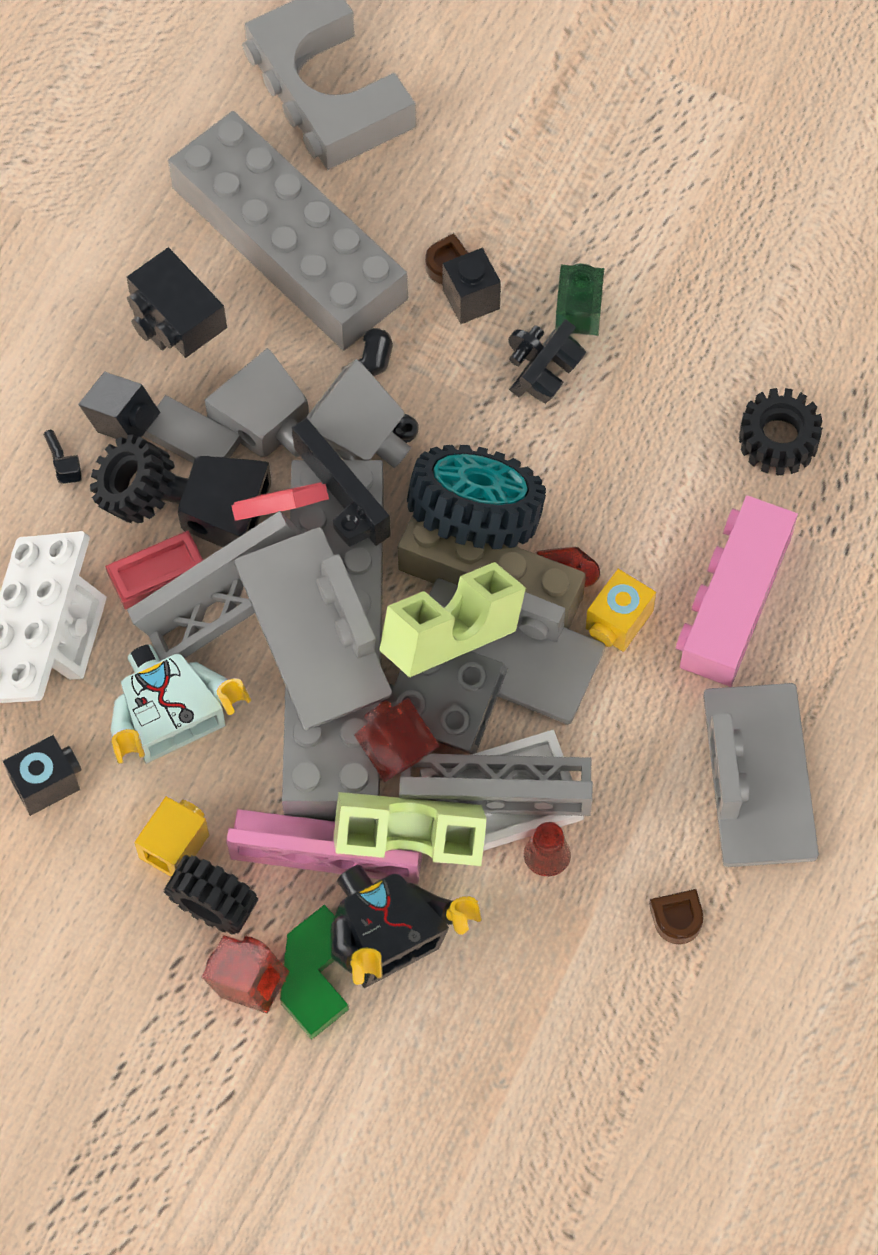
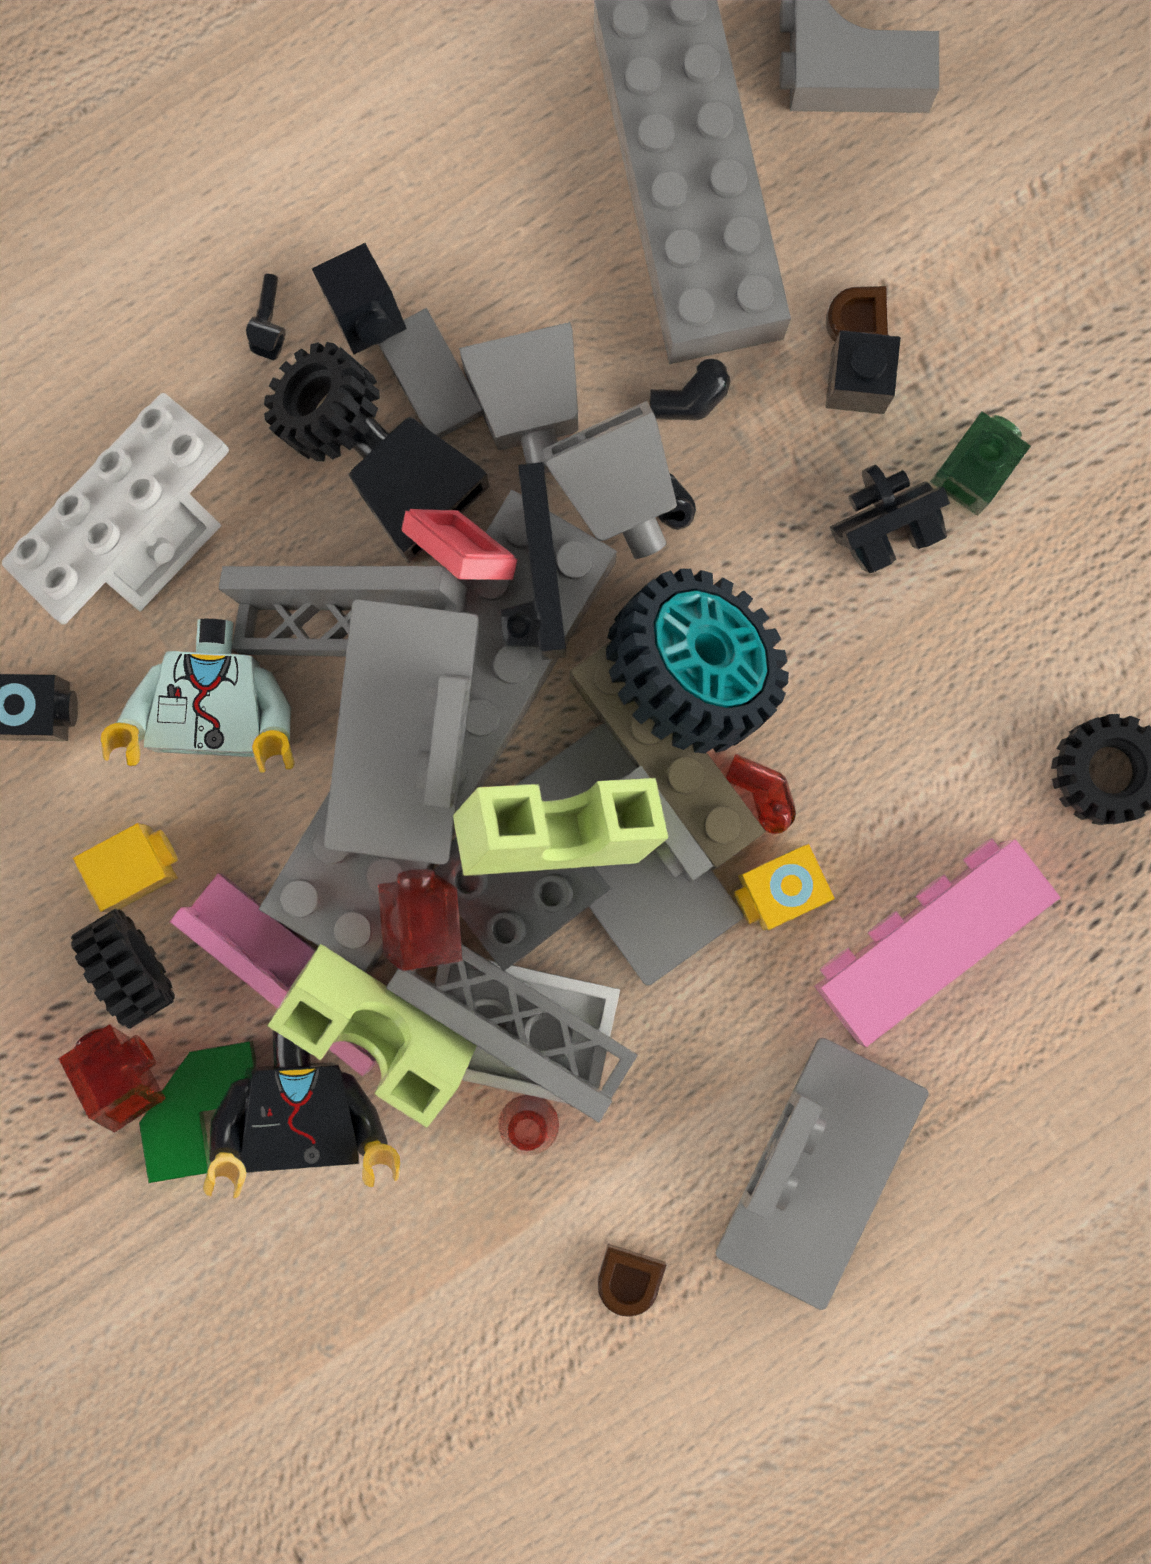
camera: 30 degrees right, 20 degrees up
(152, 568) = (296, 523): coral tile -> none
(173, 305) = (488, 204): black brick -> none

